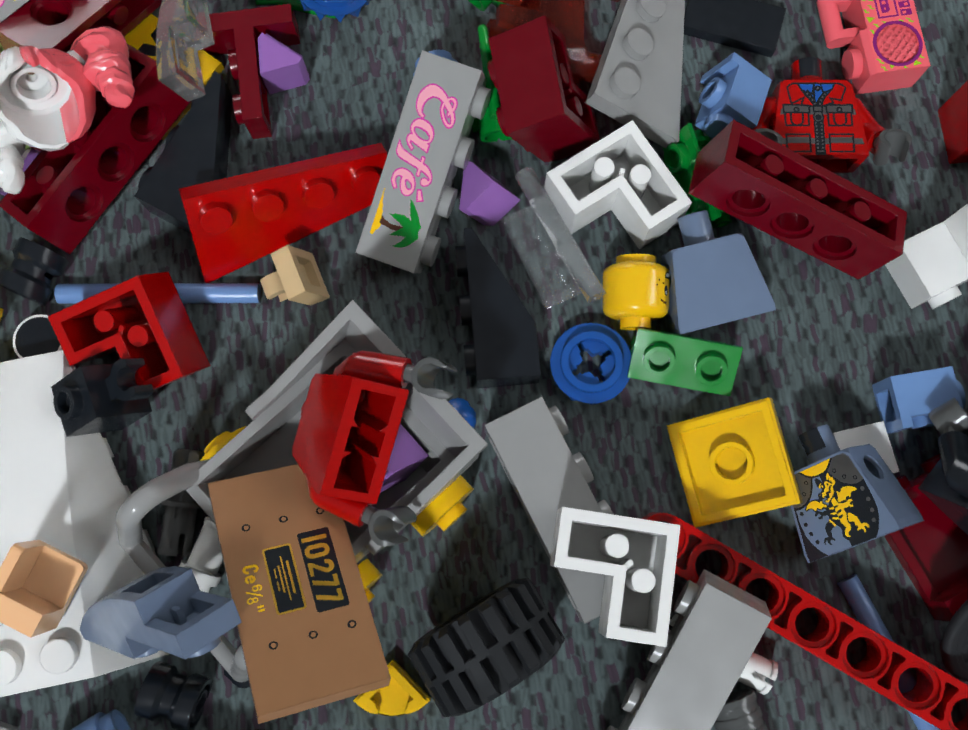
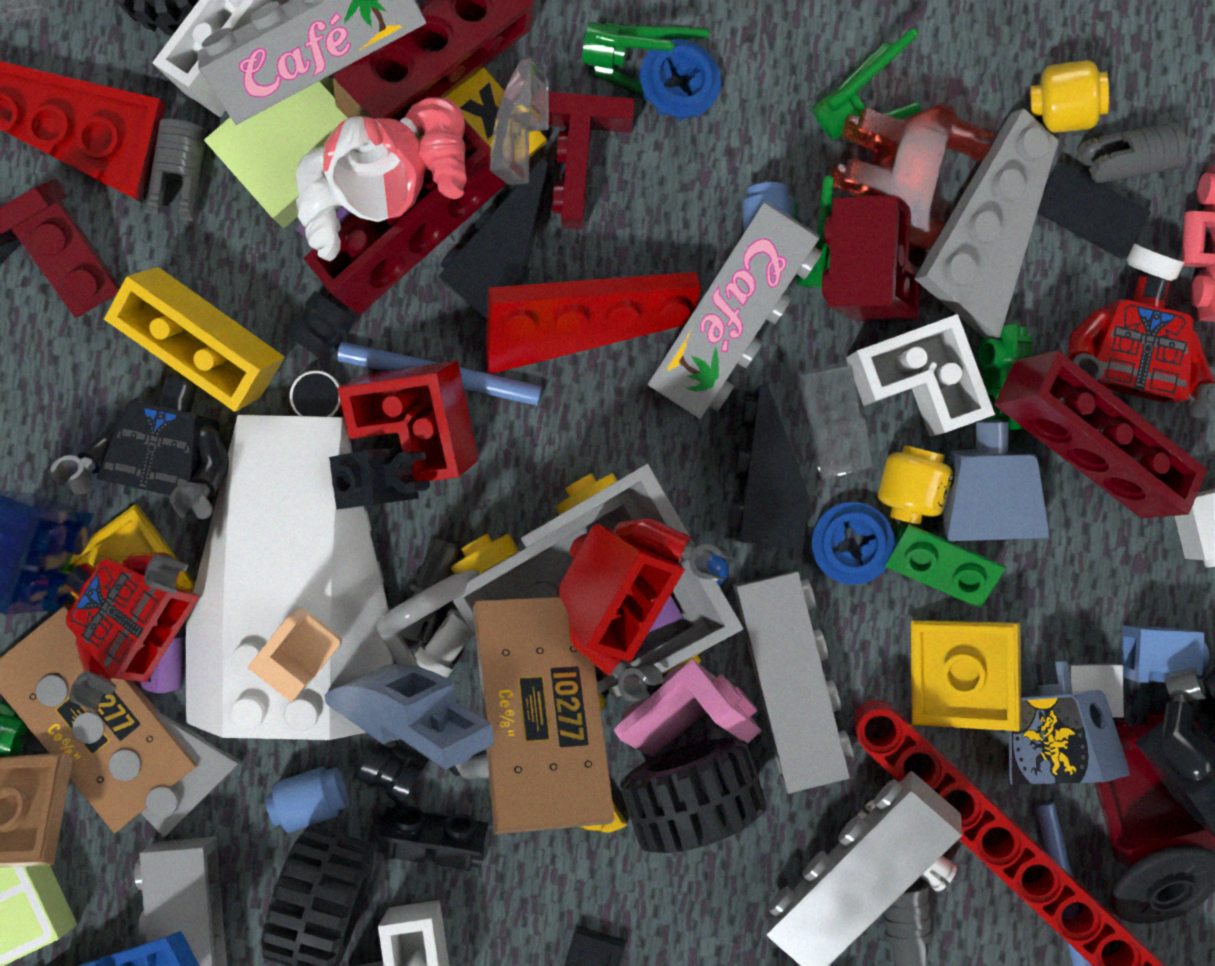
camera: 15 degrees right, 10 degrees up
(280, 65) = (608, 158): medium lavender slope -> none
(295, 277) = (582, 392): tan tile -> none
(453, 559) = (680, 701): none -> bright pink bracket
(484, 196) = (788, 349): medium lavender slope -> none
(560, 235) = (854, 410): clear bar -> none
(637, 568) = (848, 757): white brick -> none
(731, 92) = (1065, 306): medium blue brick -> none
(798, 46) = (1154, 262): none -> white tile

